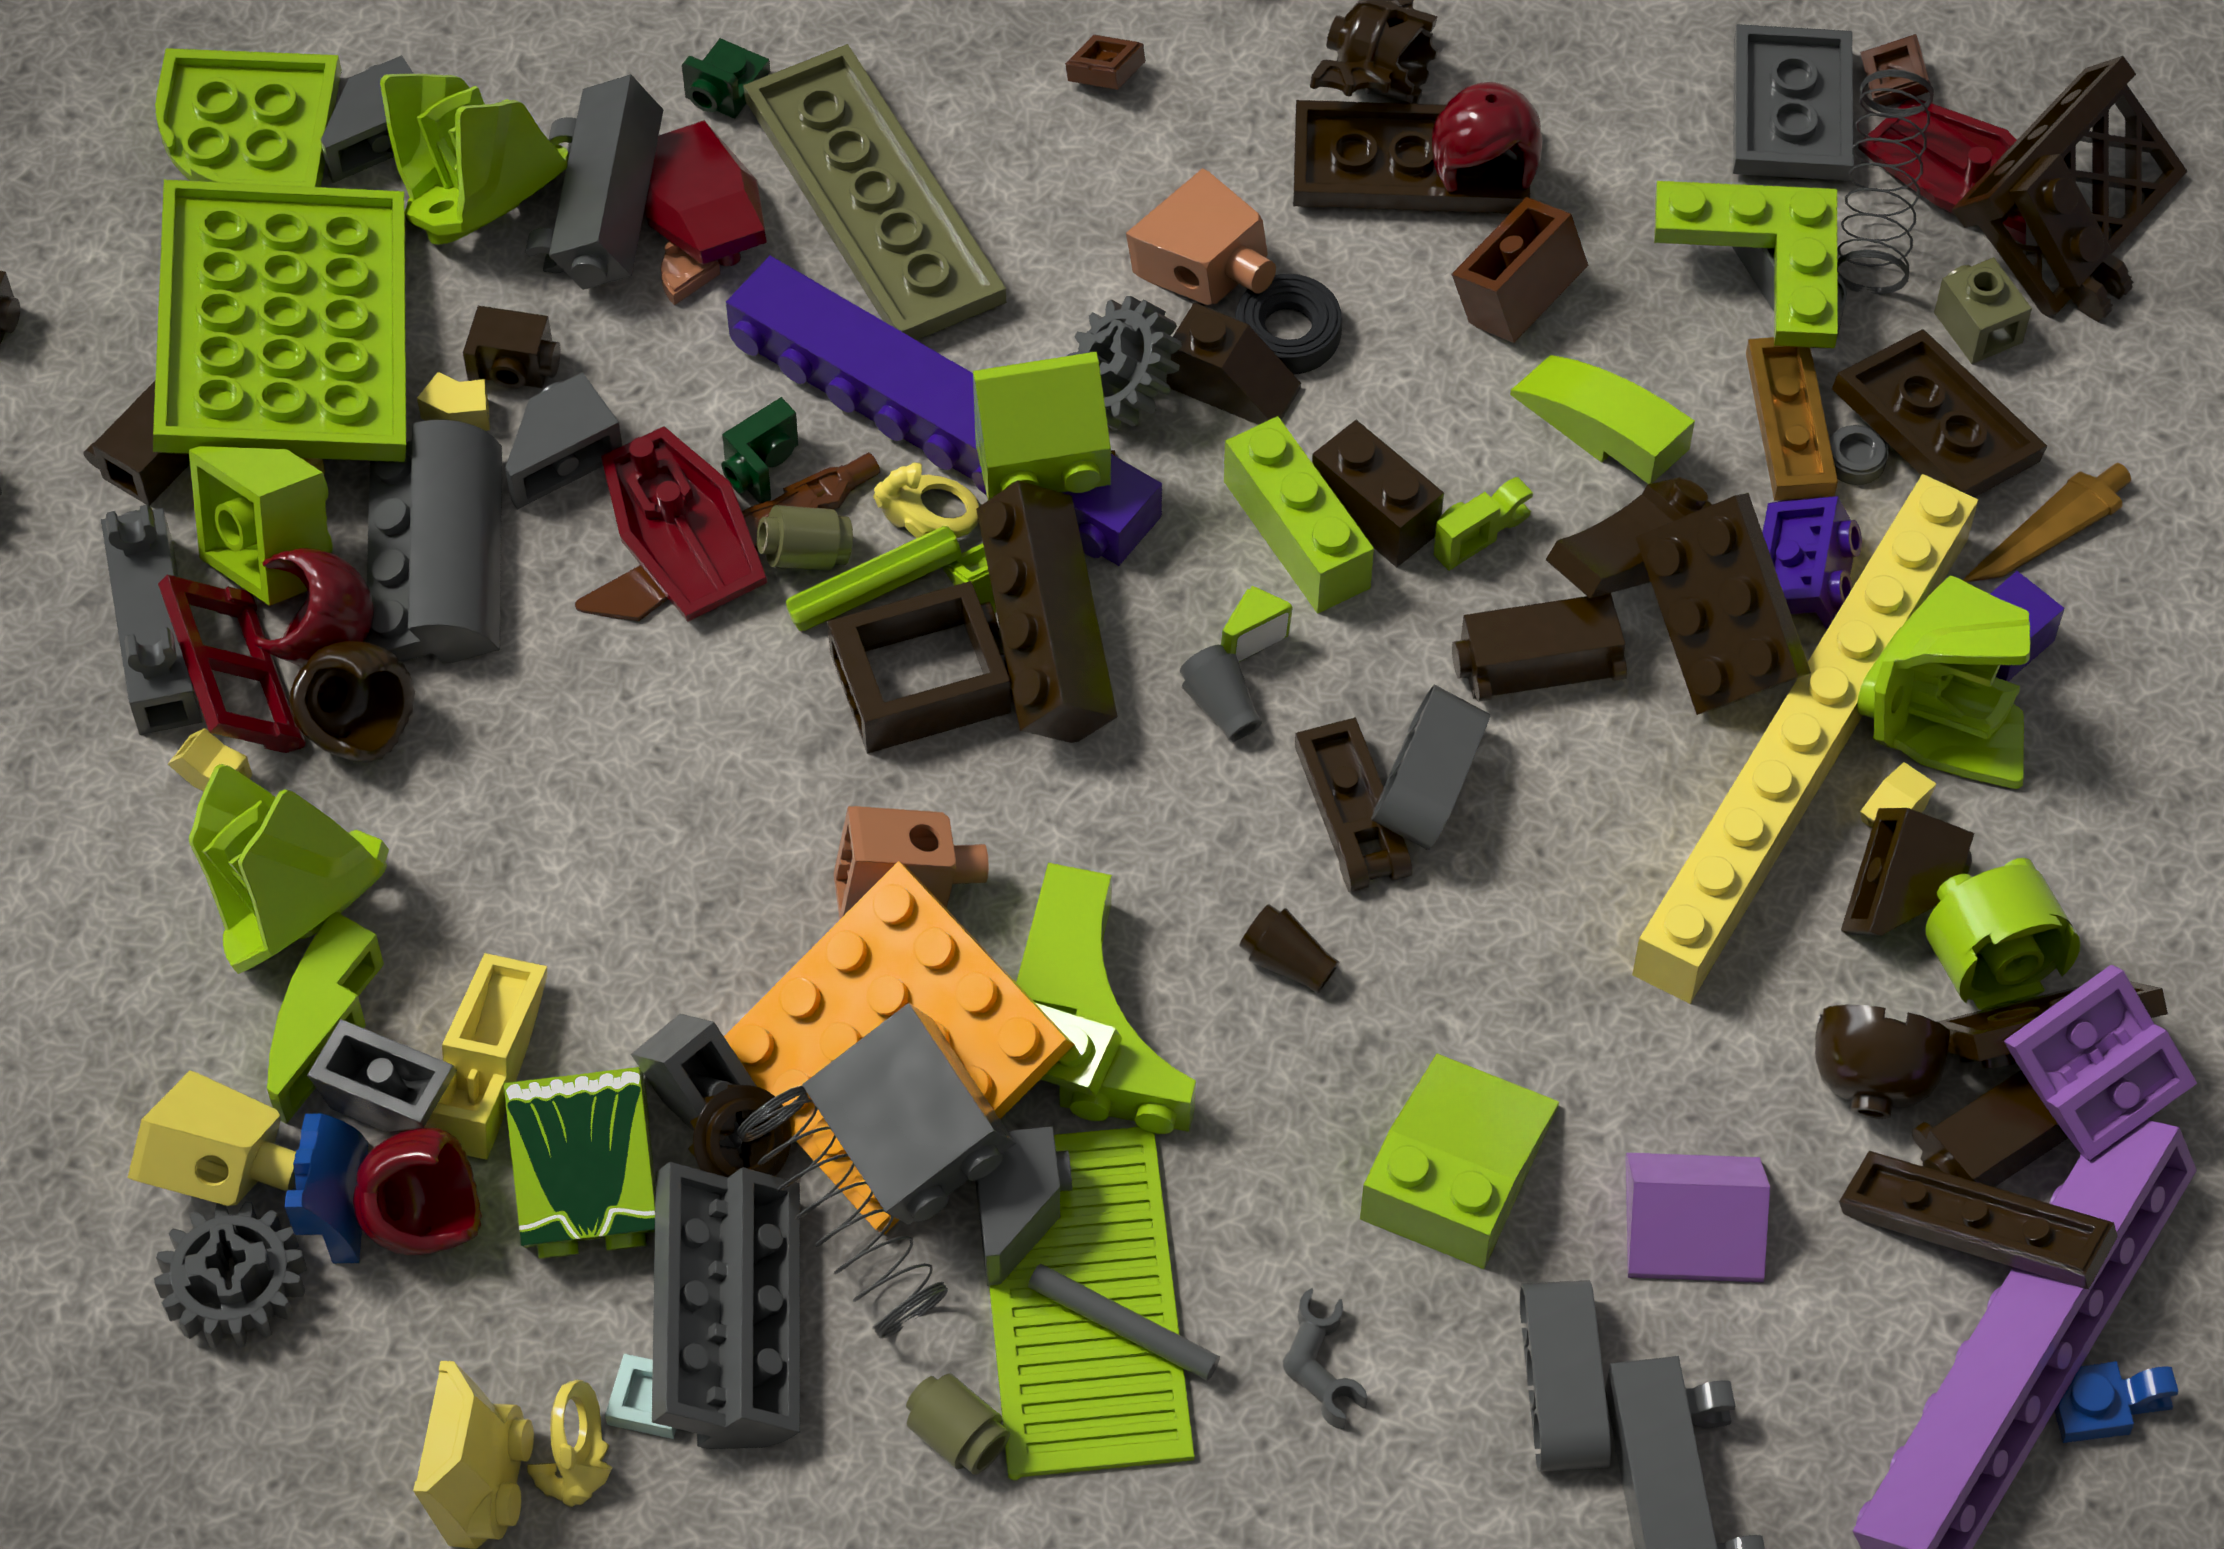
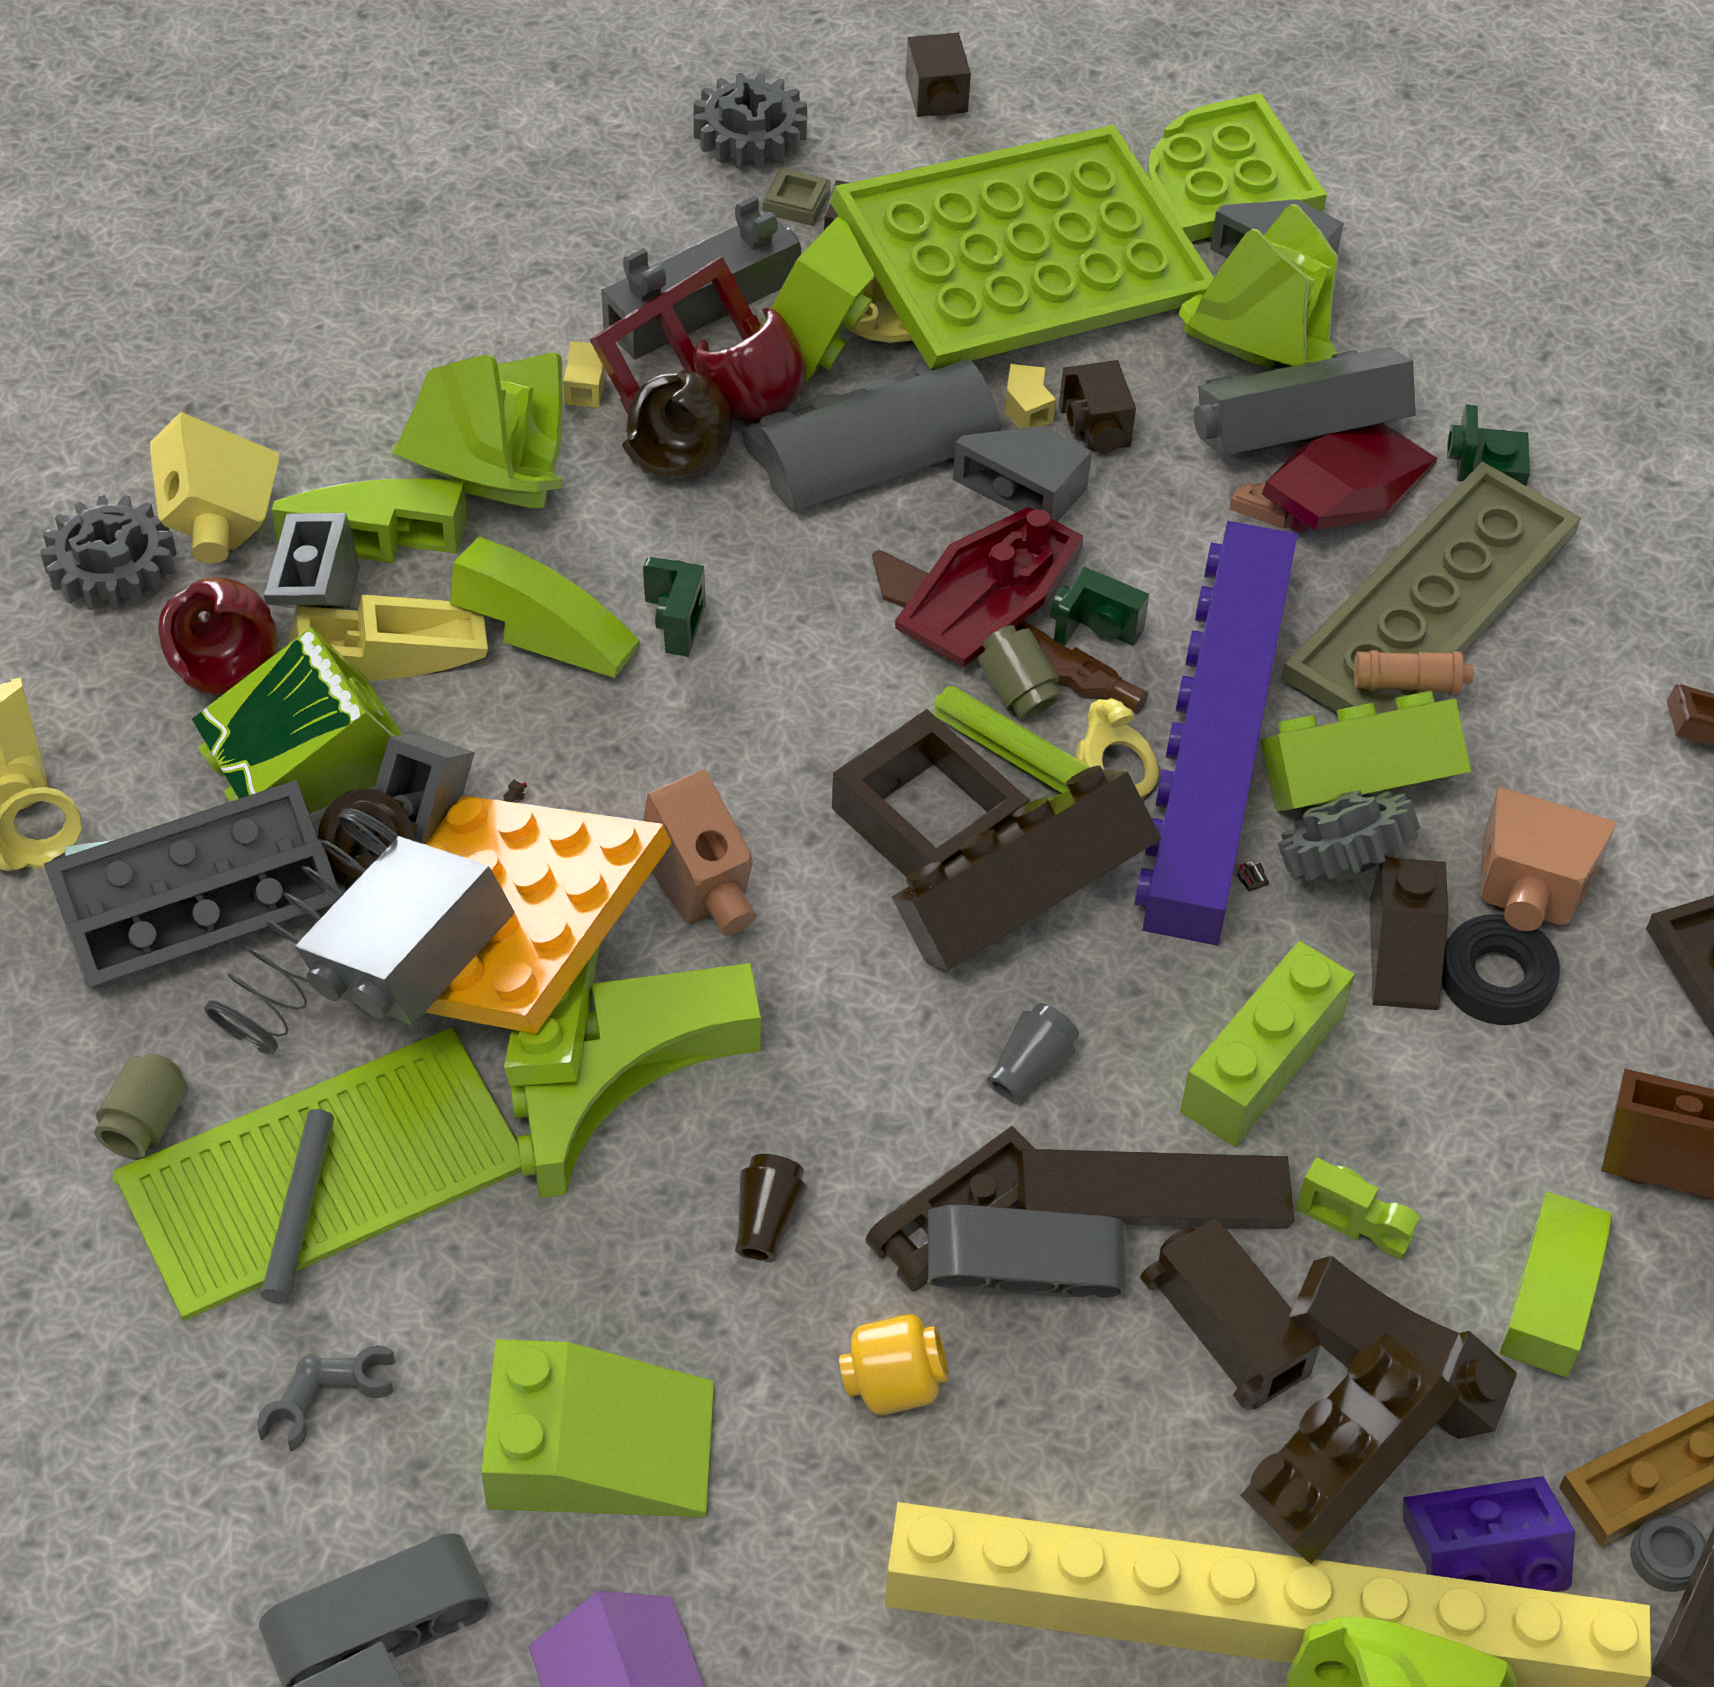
camera: 65 degrees right, 5 degrees down
(57, 497) = (797, 196): none -> olive tile
(326, 1184) = (178, 562): blue slope -> none
(522, 903) = (540, 608): none -> lime slope
(577, 782) = (680, 600): none -> dark green bracket
(725, 1006) = (516, 792): none -> dark brown piece
(970, 238) = (1413, 672): none -> nougat piece
(1021, 1200) = (382, 1067): dark grey slope -> none
(1038, 295) = (1365, 751): none -> lime brick
(1042, 425) = (1202, 773): lime slope -> none
(1256, 623) = (1116, 1049): lime slope -> none
(1380, 492) = (1332, 1097): dark brown brick -> none
(1402, 655) = (1159, 1187): none -> dark brown tile
(1489, 906) = (895, 1364): none -> yellow head

